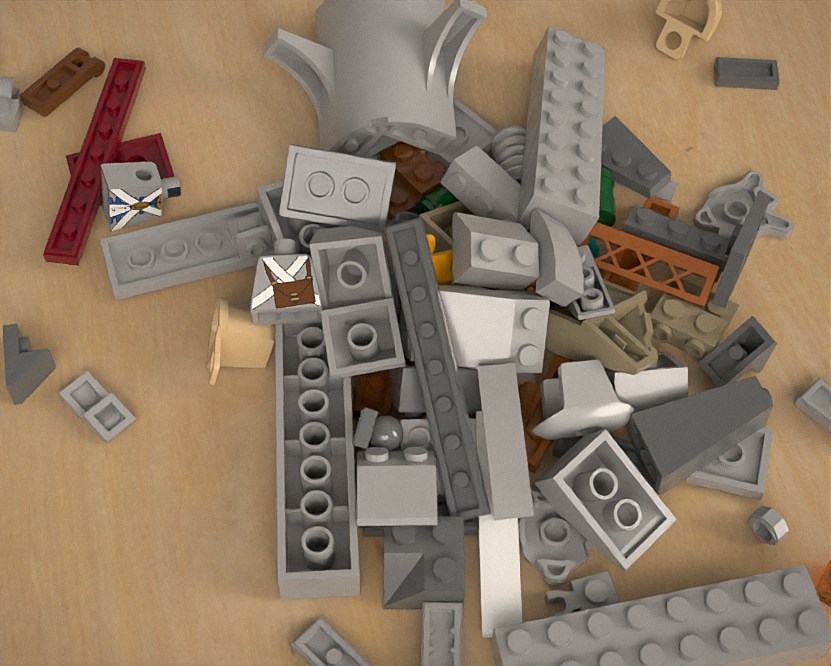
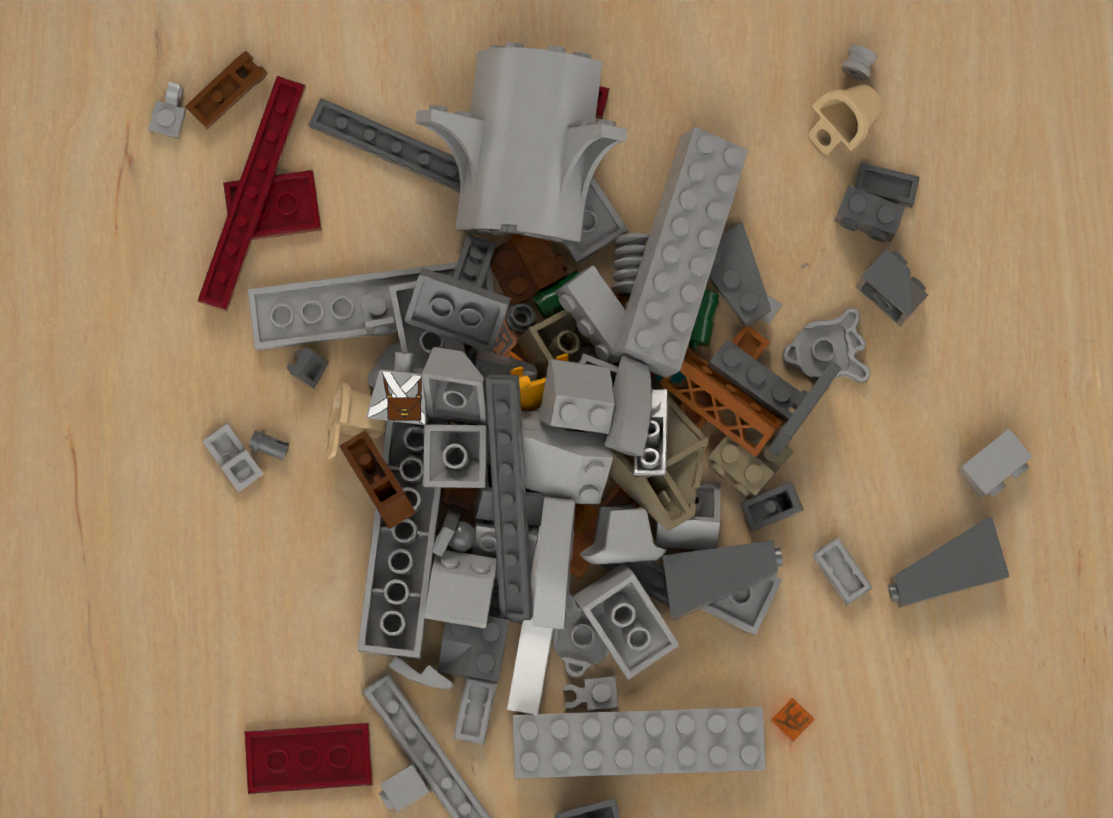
camera: 10 degrees right, 25 degrees up
(23, 367) = (173, 415): dark grey slope -> none
(134, 193) = (272, 249): light grey torso -> none
(139, 387) = (268, 445): none -> dark grey pin
(176, 303) = (308, 367): none -> dark grey tile
(237, 106) = (386, 144): none -> dark grey tile
(277, 381) = (377, 479): none -> reddish brown slope
(376, 612) = (429, 676): none -> light grey slope
(741, 90) = (869, 214): none -> dark grey brick
(768, 525) = (752, 660): light grey tile -> none
(788, 139) = (890, 287): none -> dark grey slope

